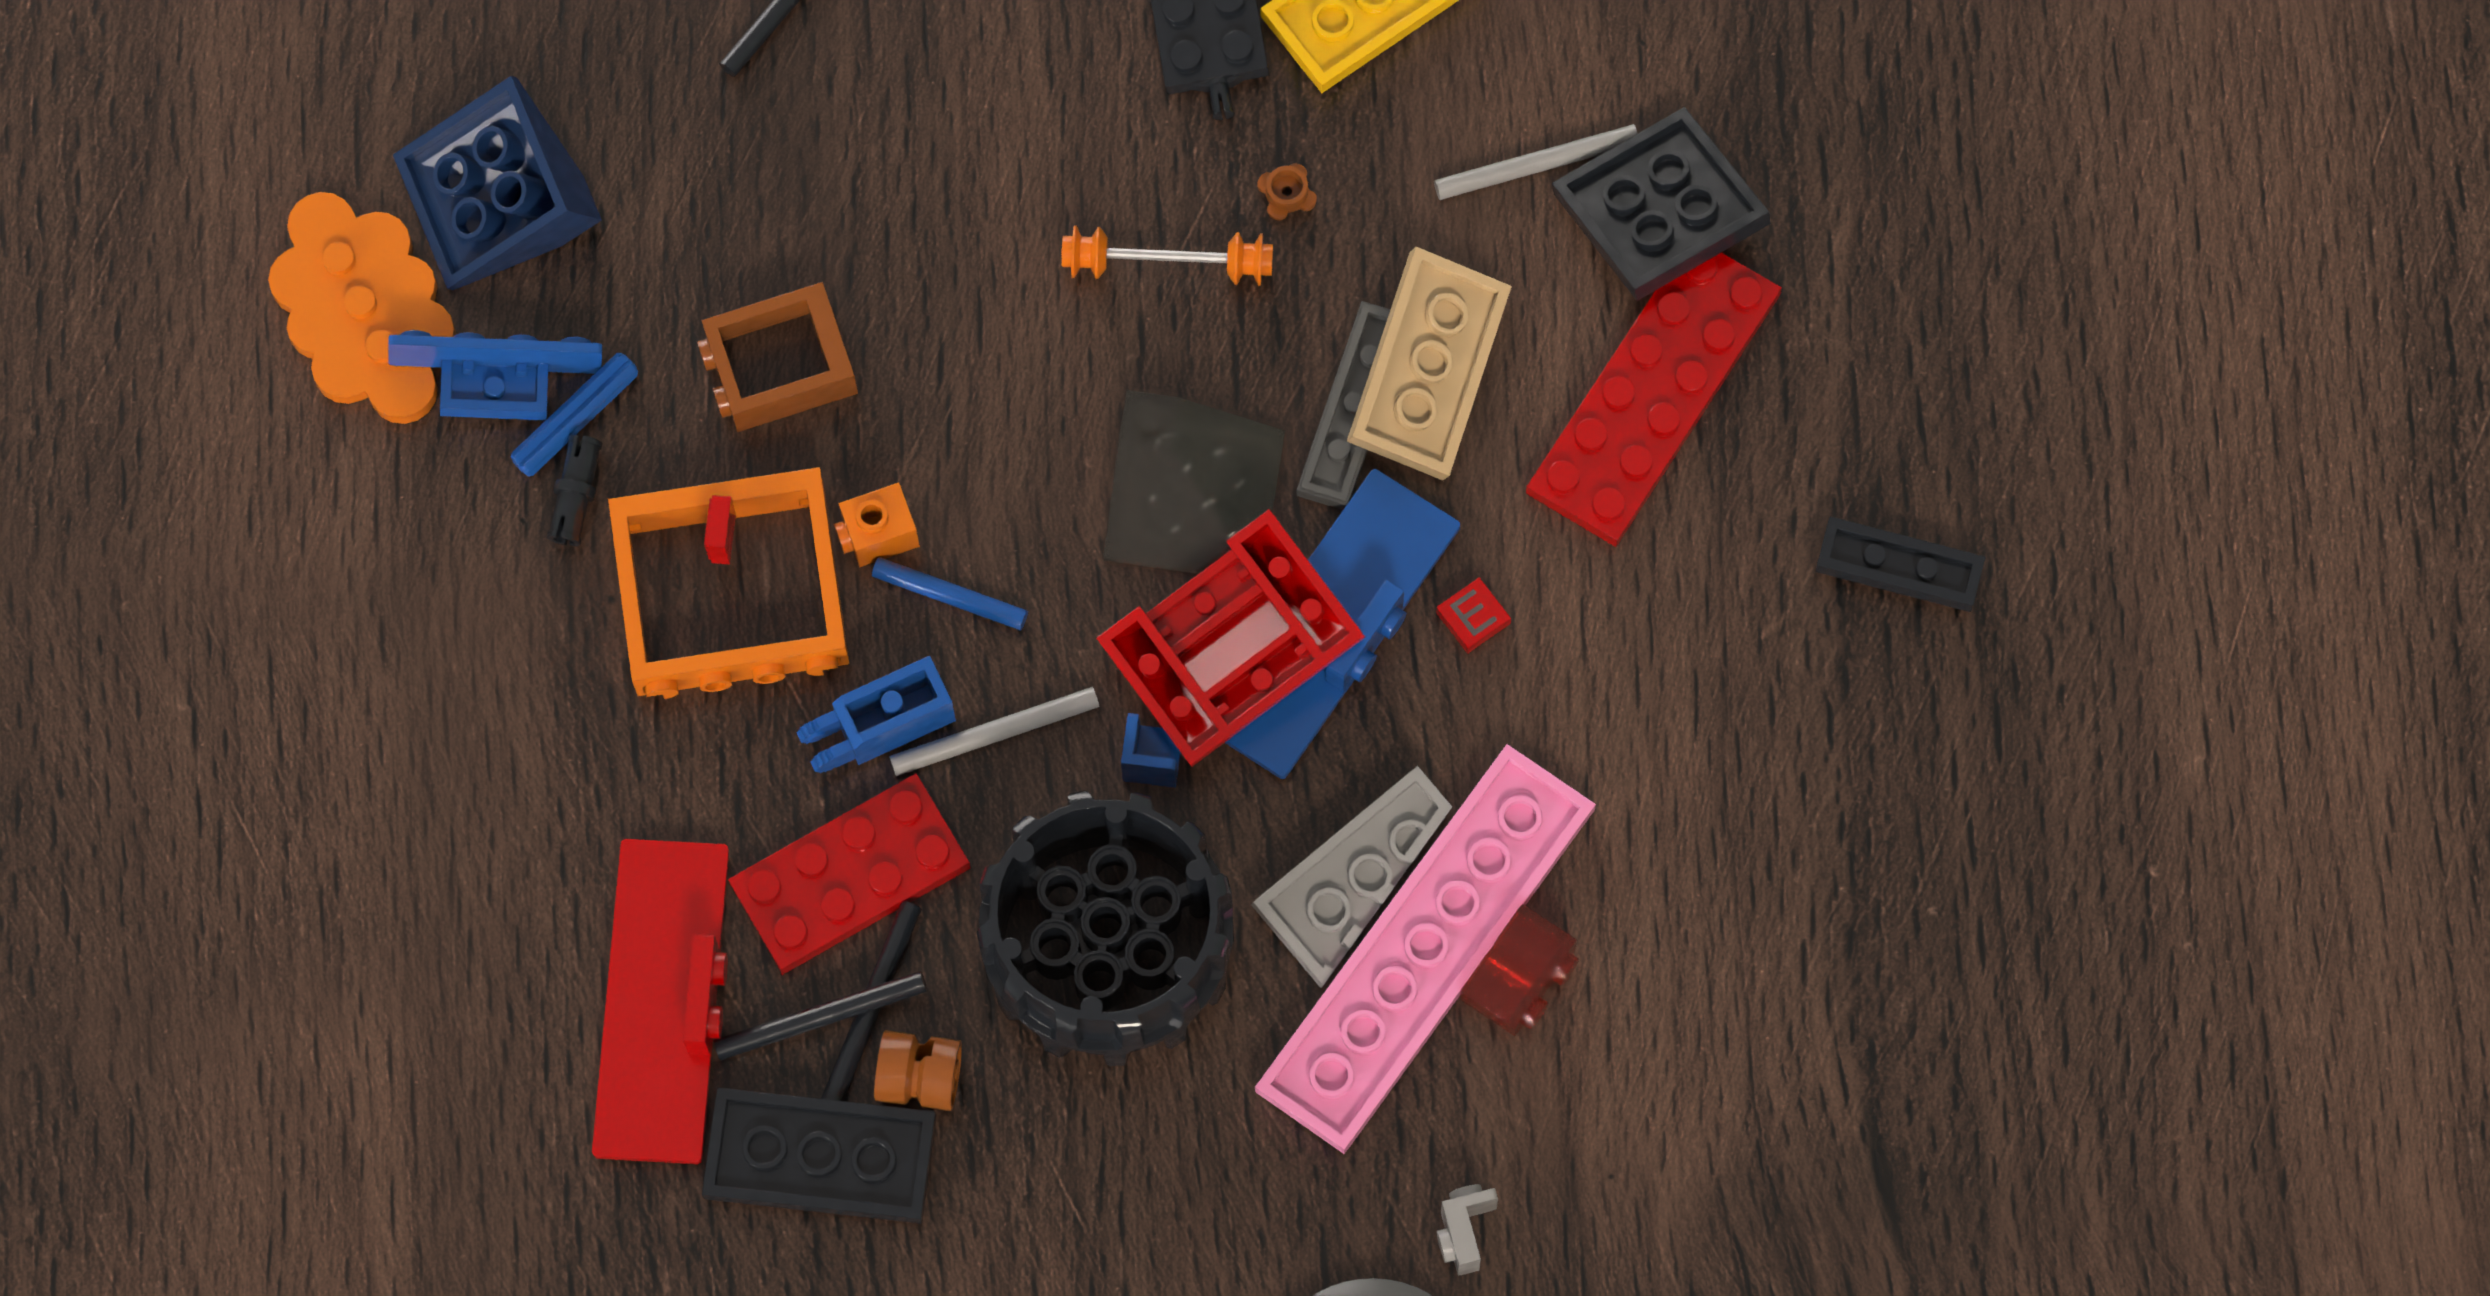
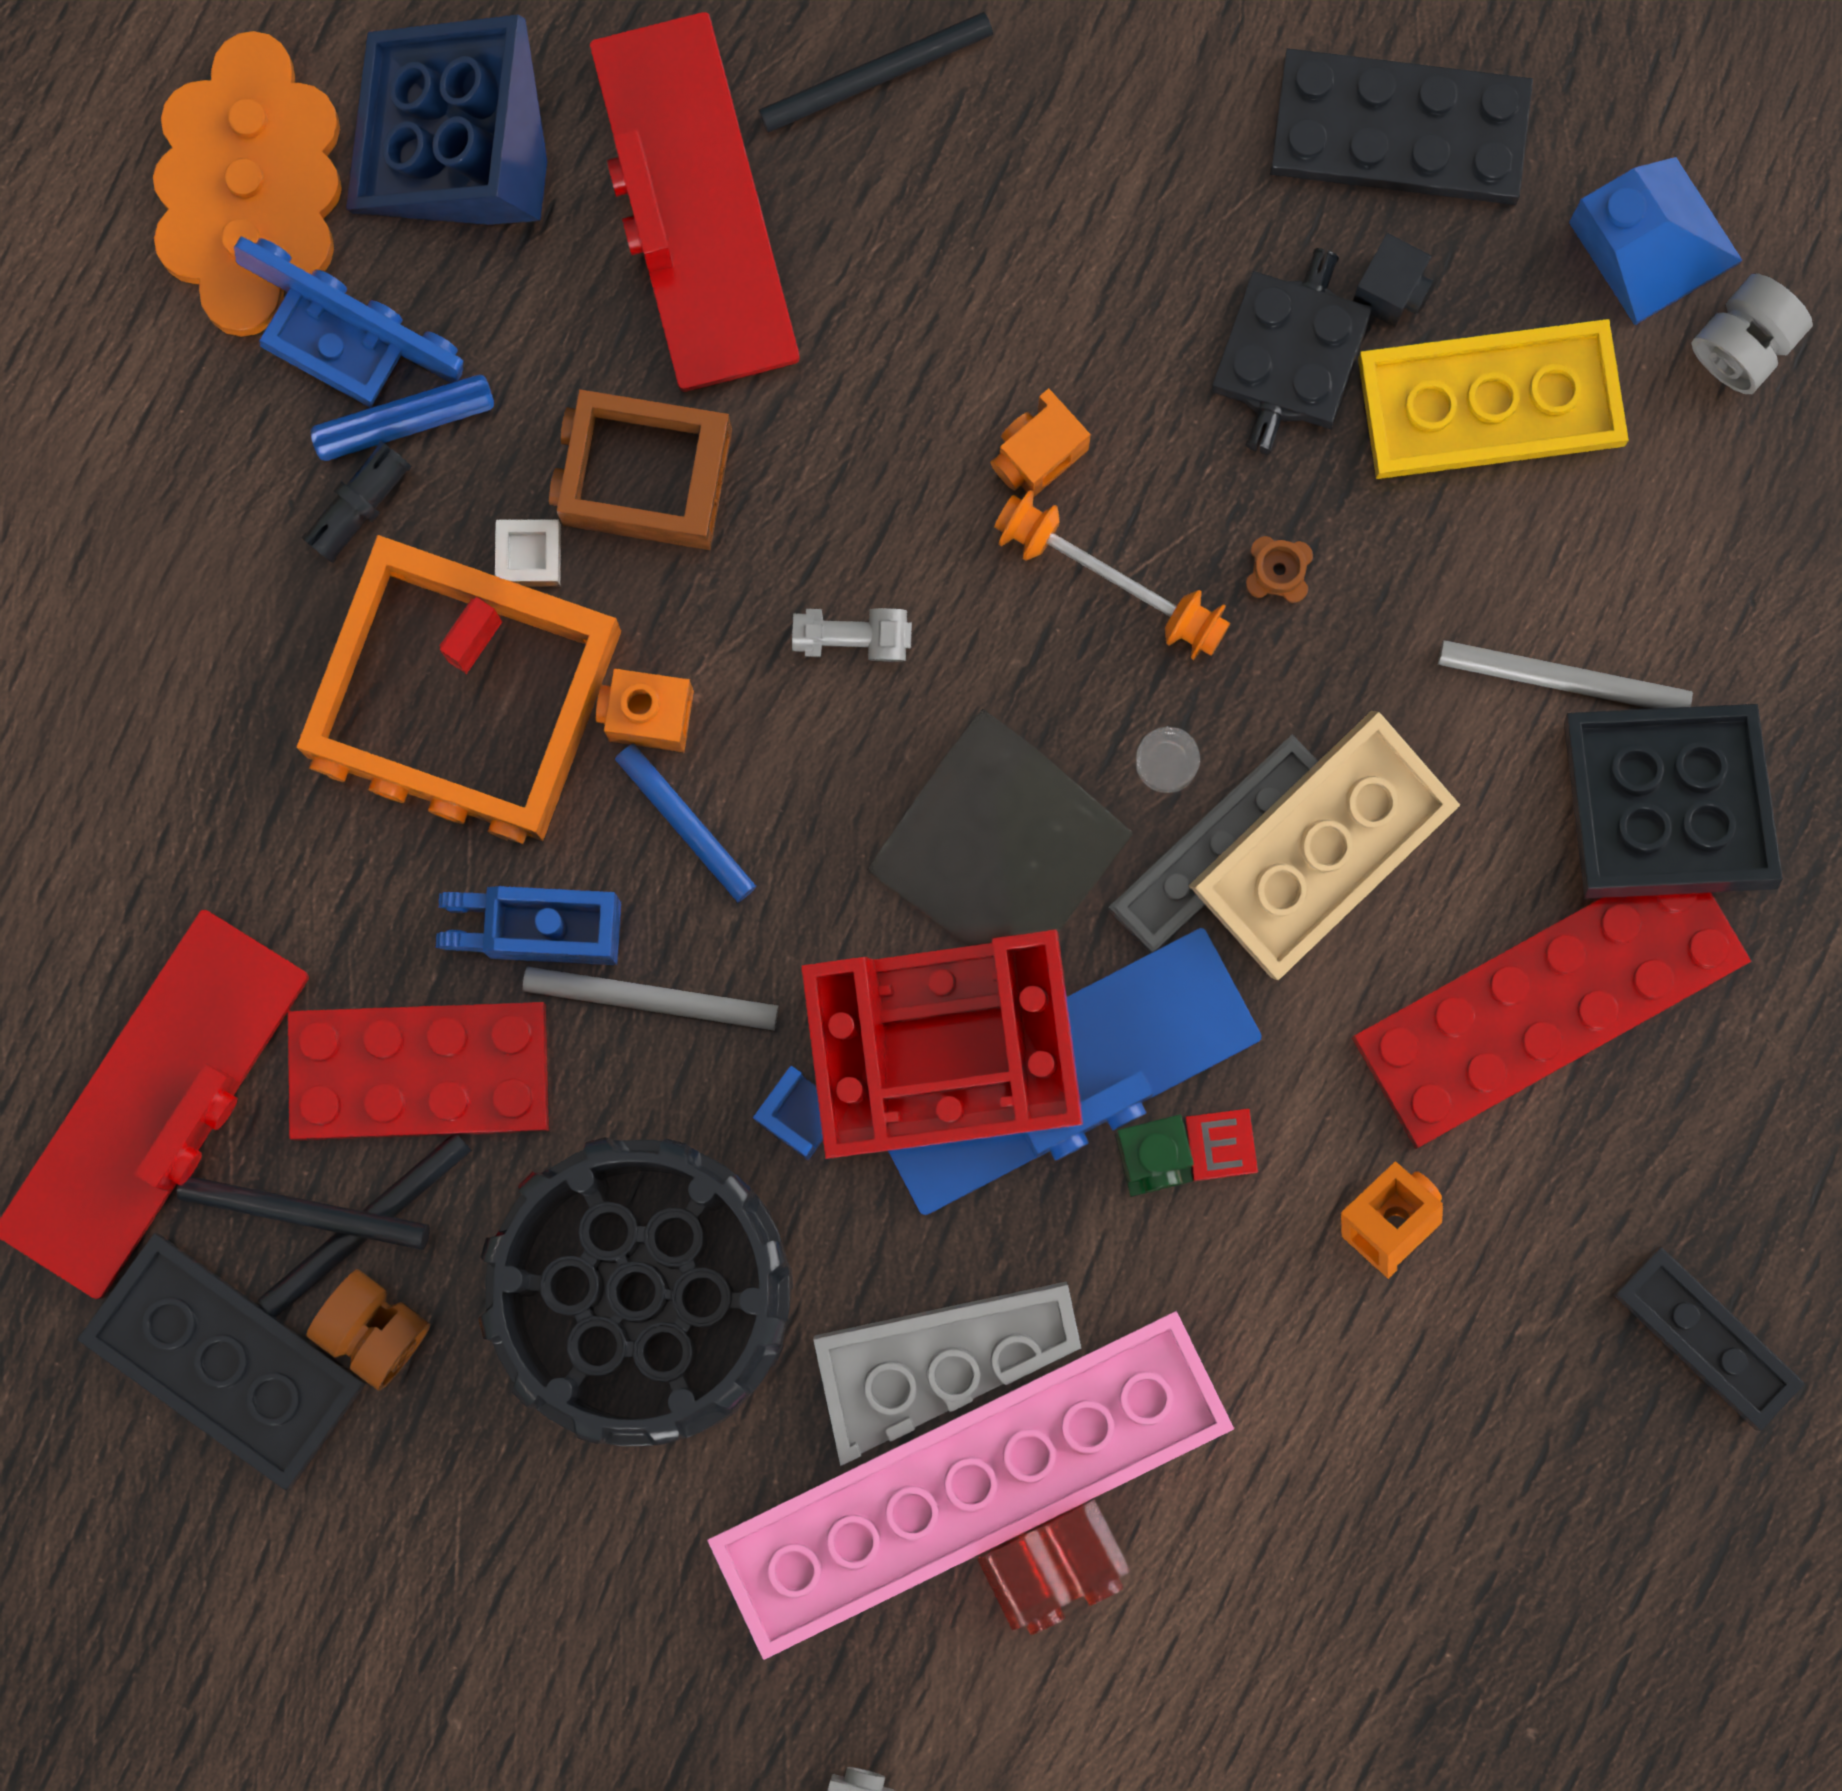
camera: 30 degrees right, 10 degrees up
(708, 151) = (693, 202): none -> red bracket
(723, 458) = (528, 552): none -> white tile
(1023, 383) = (885, 634): none -> light grey bar
(1064, 191) = (1040, 446): none -> orange brick
(1281, 366) = (1167, 759): none -> clear tile
(1428, 643) = (1155, 1155): none -> dark green brick
(1625, 598) = (1392, 1194): none -> orange brick

